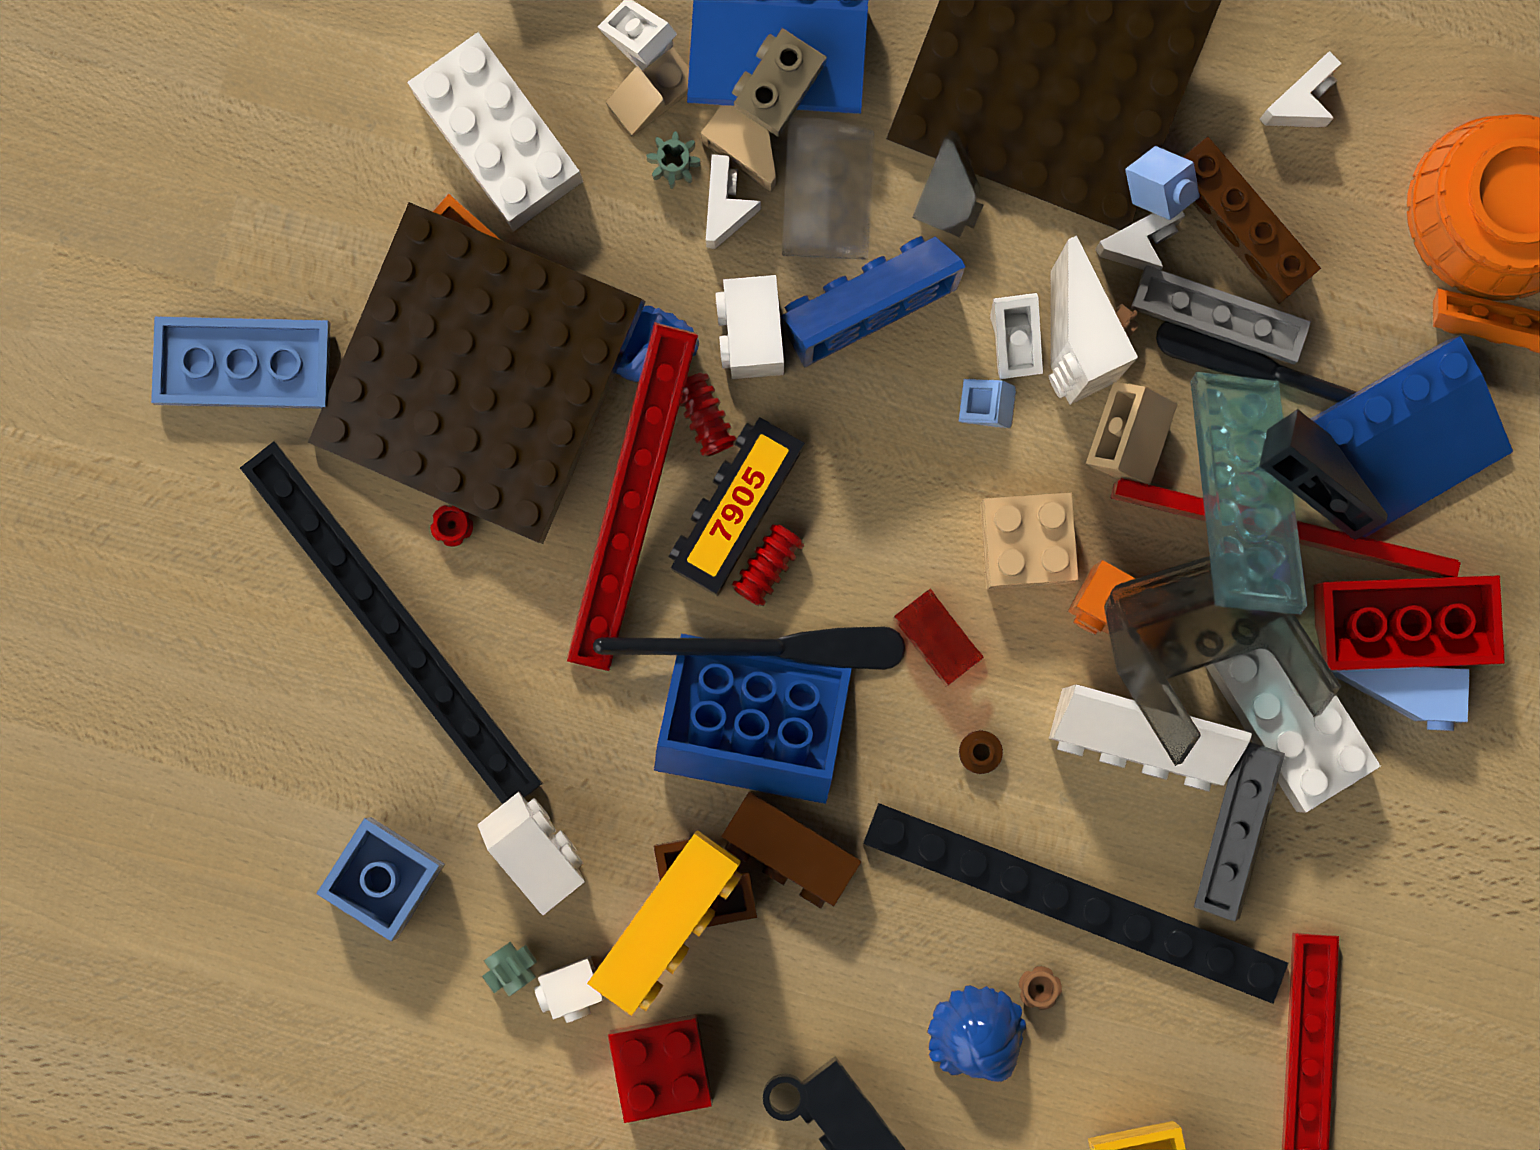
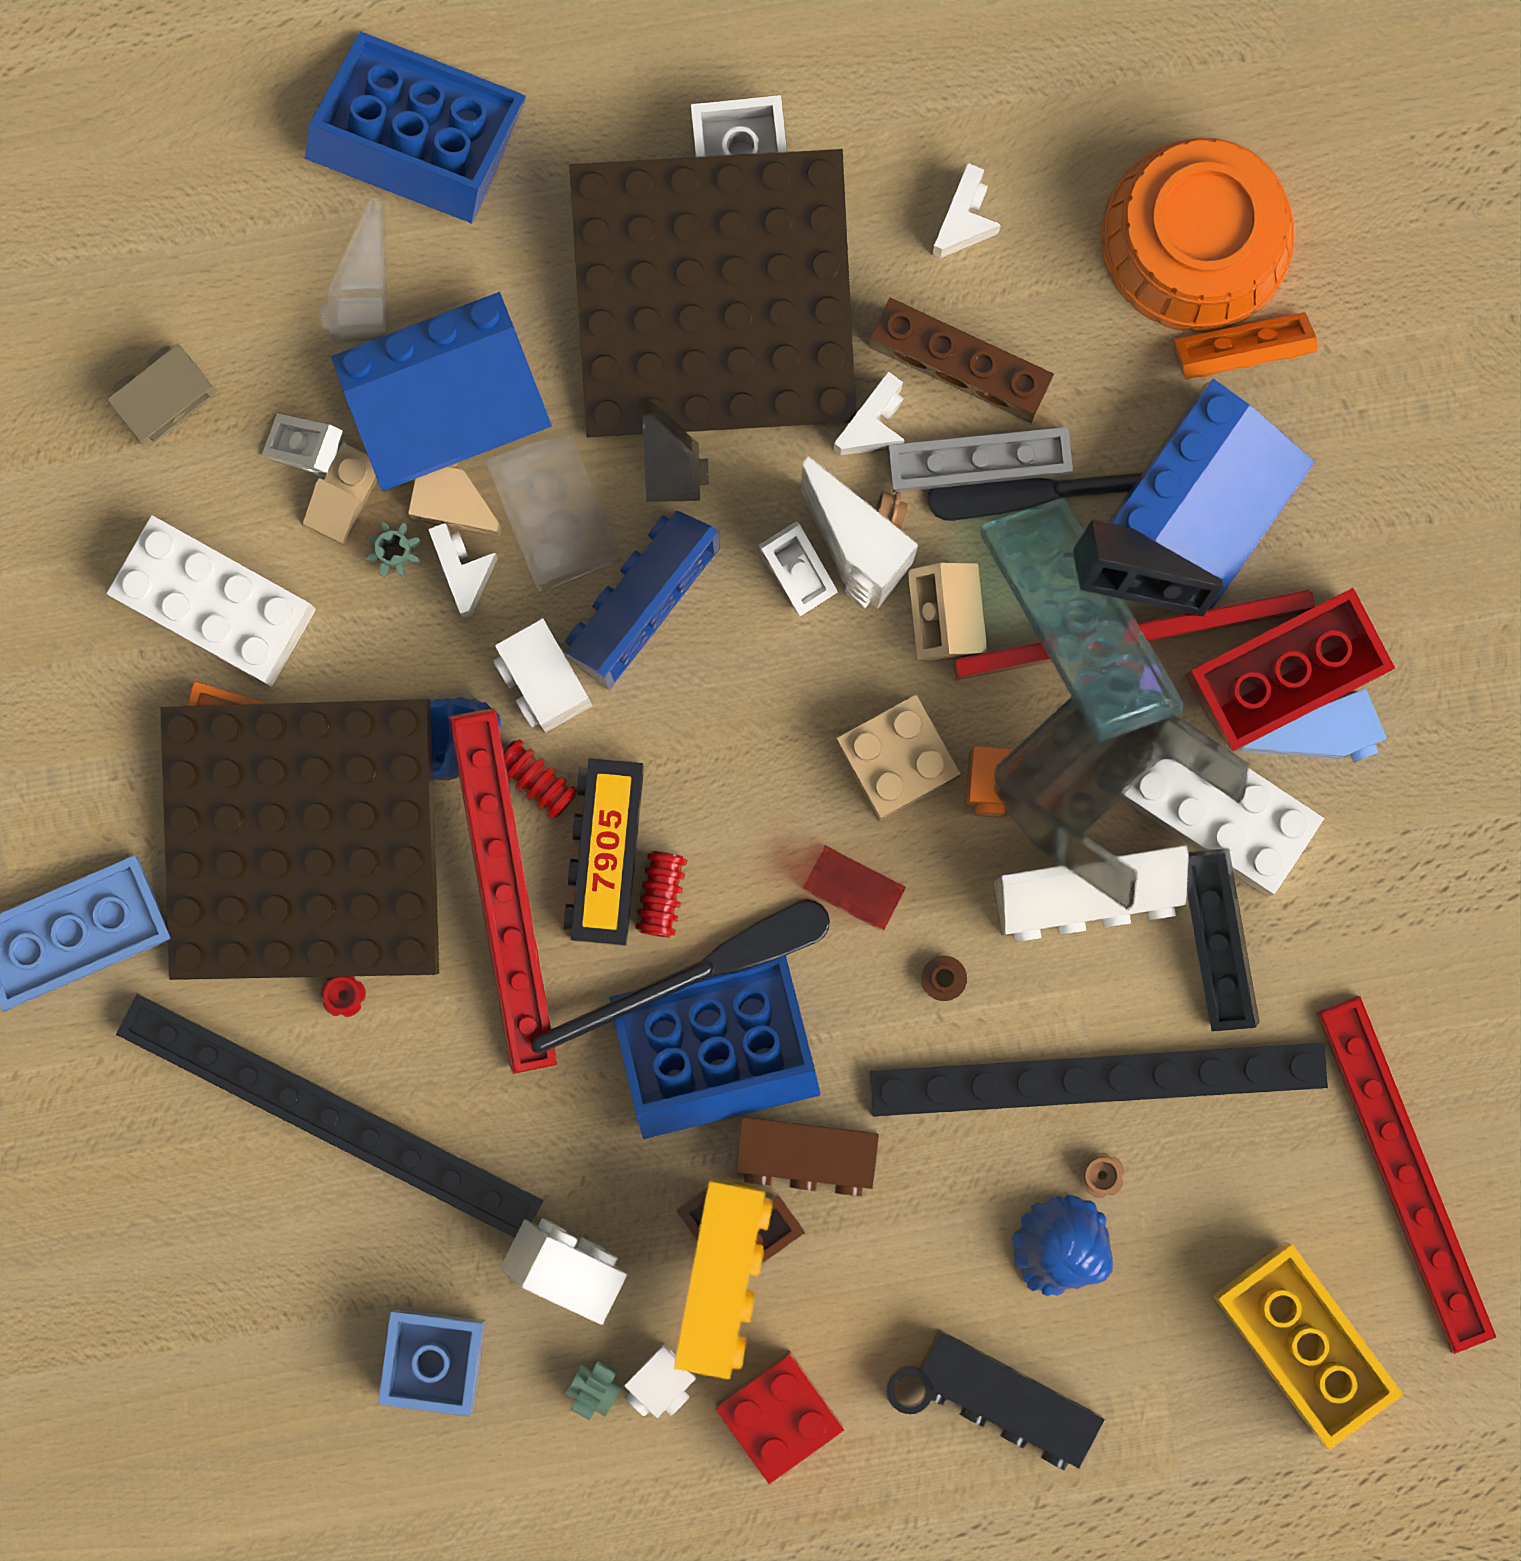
camera: 25 degrees left, 0 degrees up
(779, 81) = (460, 433): dark tan brick -> none
(987, 403) = (798, 644): light blue slope -> none
(1162, 182) = (867, 361): light blue brick -> none

